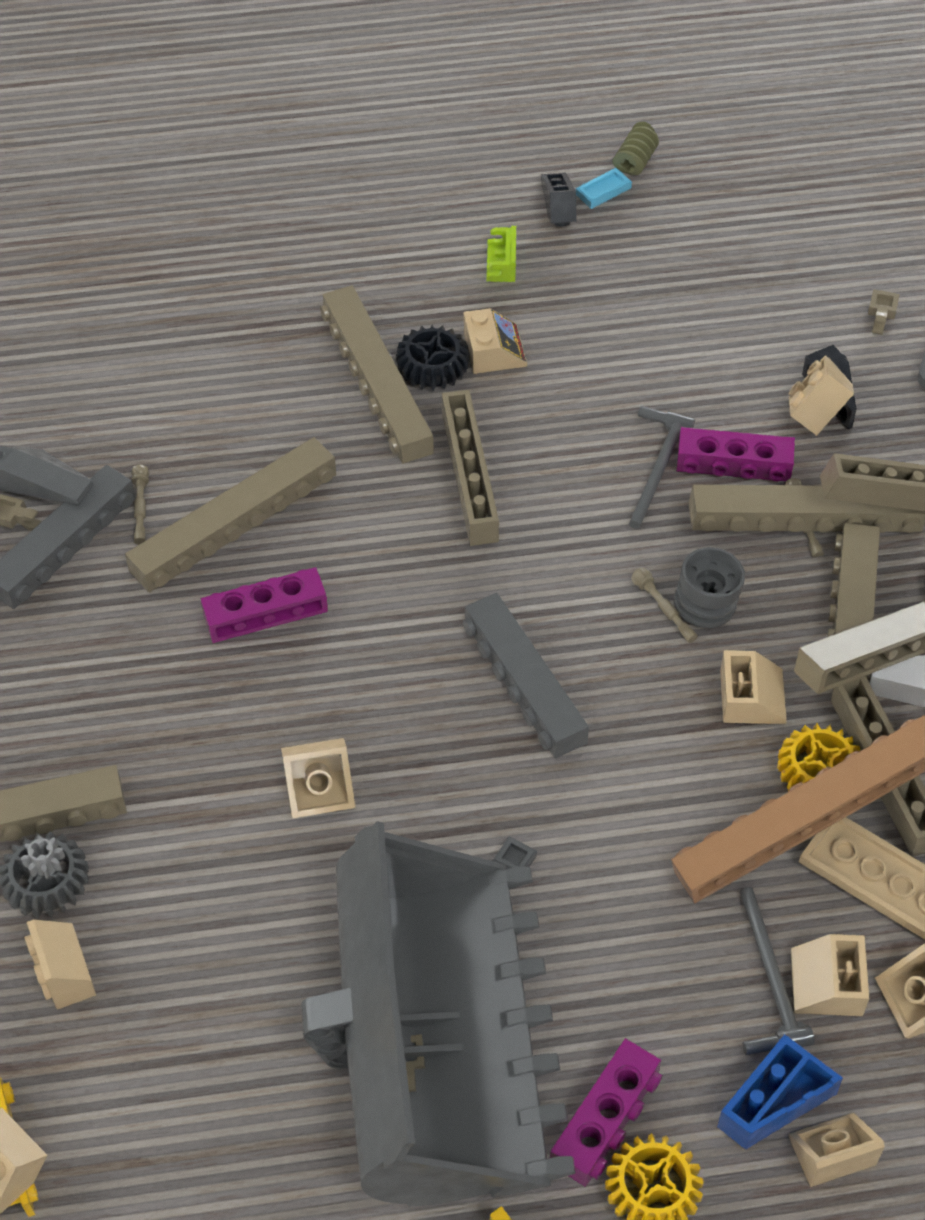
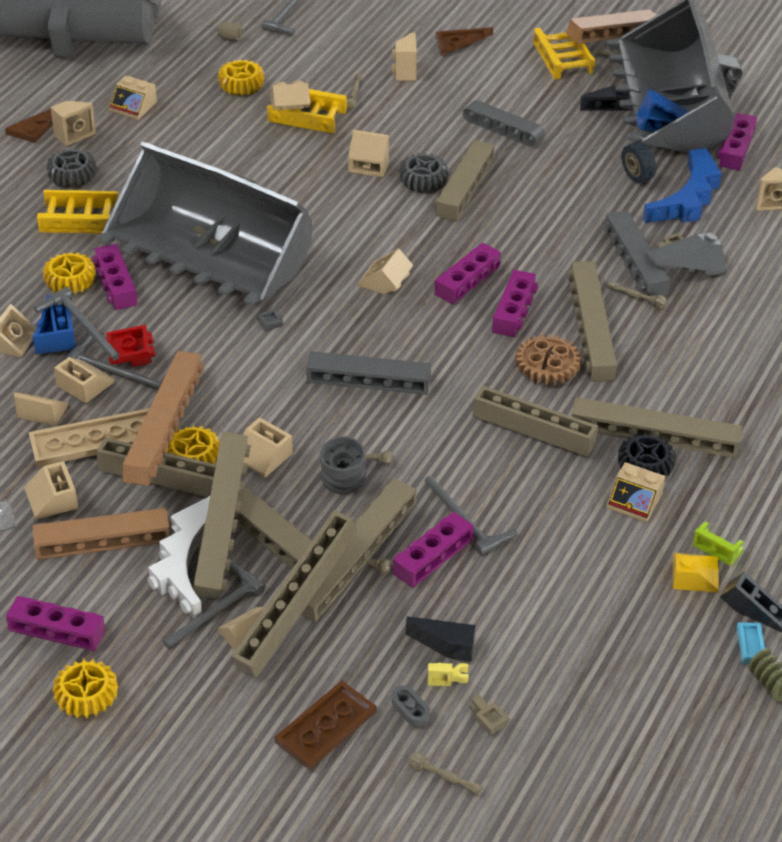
camera: 125 degrees right, 10 degrees down
(43, 857) = (423, 159): light grey gear -> none
(228, 694) = (467, 273): none -> magenta brick
(343, 518) = (560, 364): none -> medium nougat gear
(556, 259) = (695, 572): none -> yellow slope
(725, 968) = (132, 345): none -> red plate
(744, 1092) = (64, 297): none -> dark grey bar
(819, 395) = (432, 605): tan slope -> none
(876, 359) = (443, 674): none -> light yellow plate

